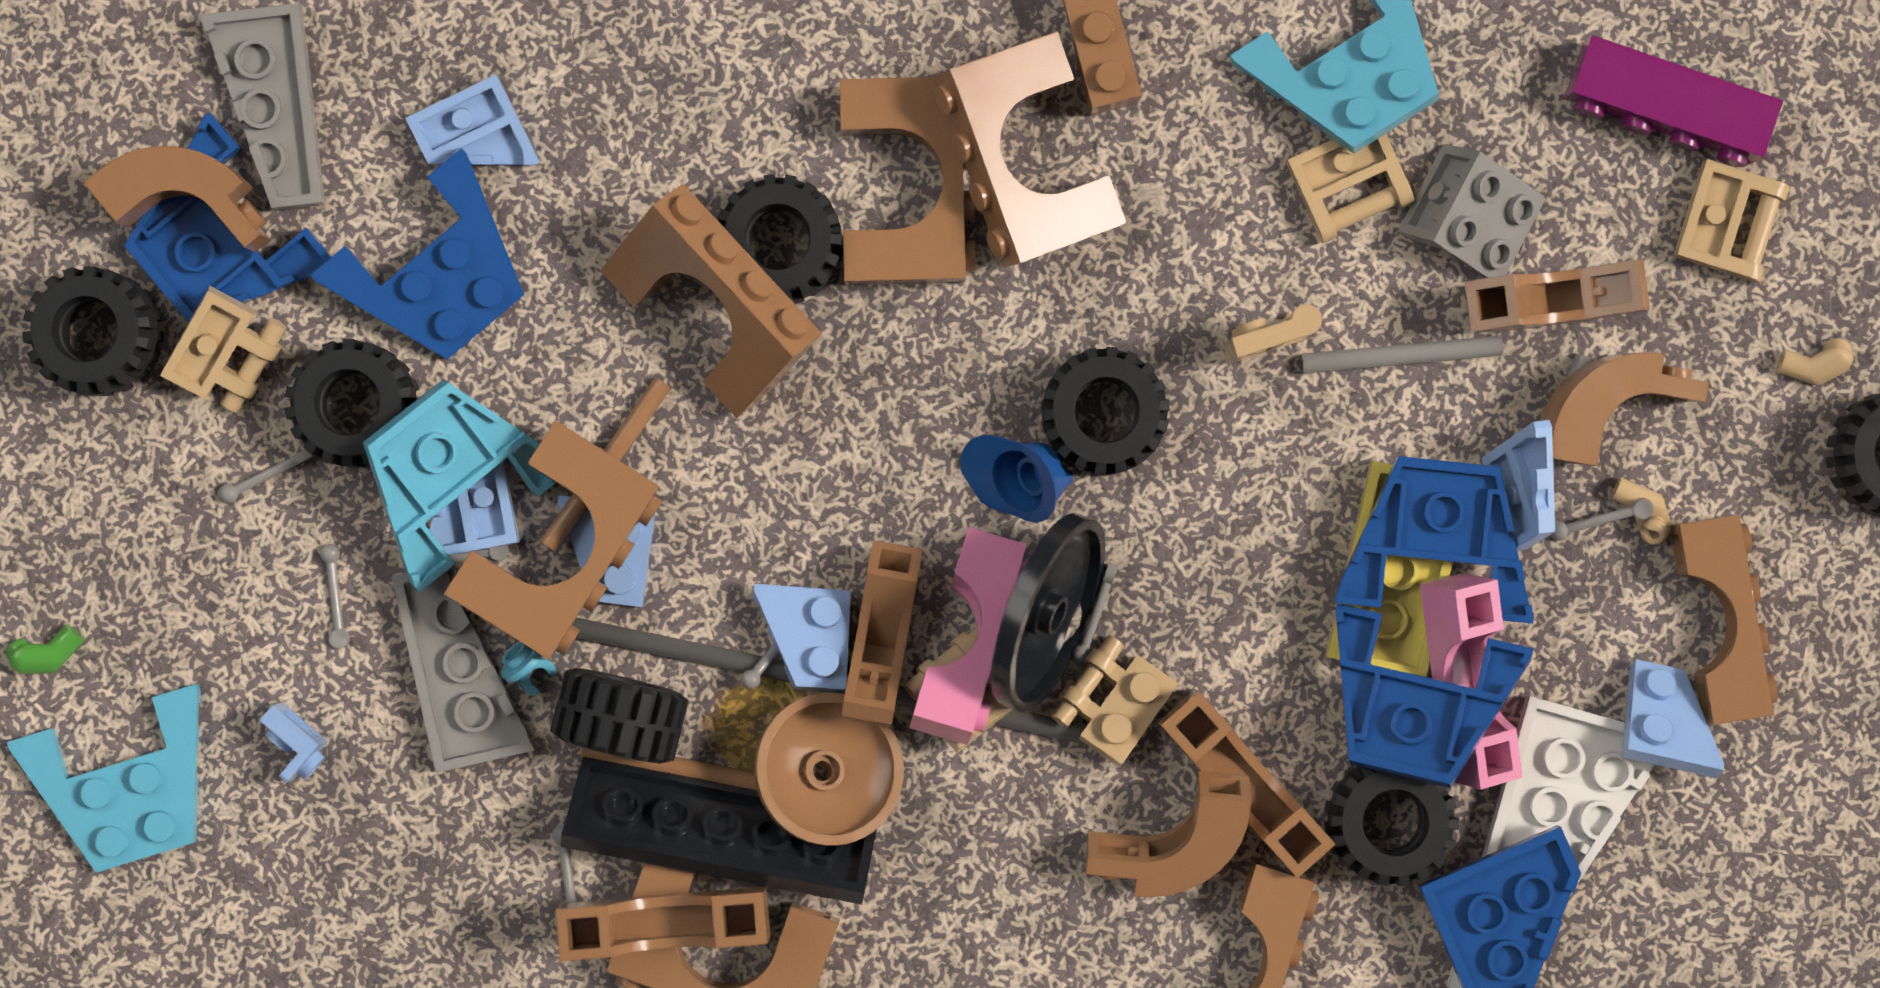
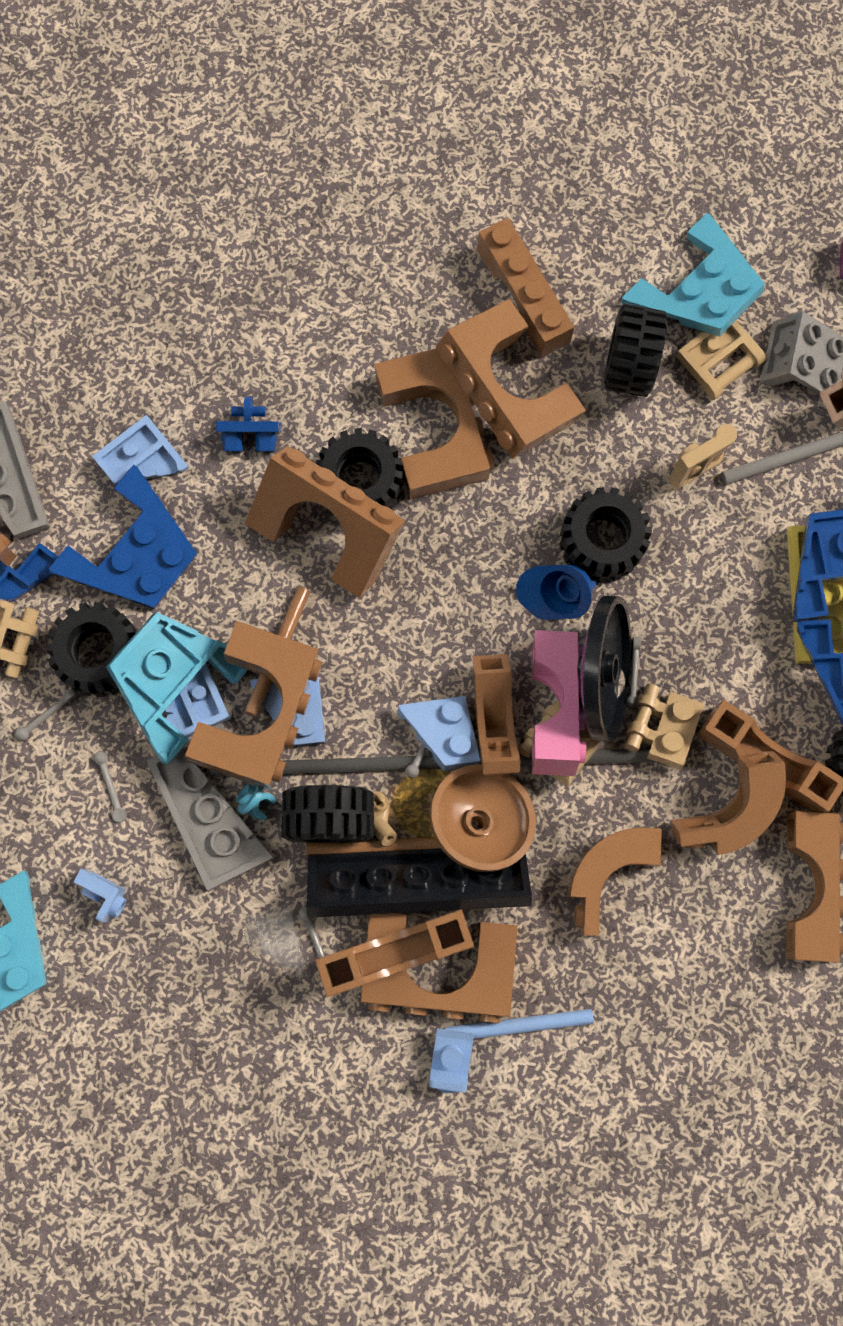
camera: 10 degrees left, 10 degrees down
(515, 862) = (277, 939): none -> clear slope
(617, 123) = (233, 430): none -> blue hips
(694, 726) = (382, 829): none -> tan arm
(990, 857) = (617, 850): none -> medium nougat arch
(1219, 153) = (635, 350): none -> black tyre

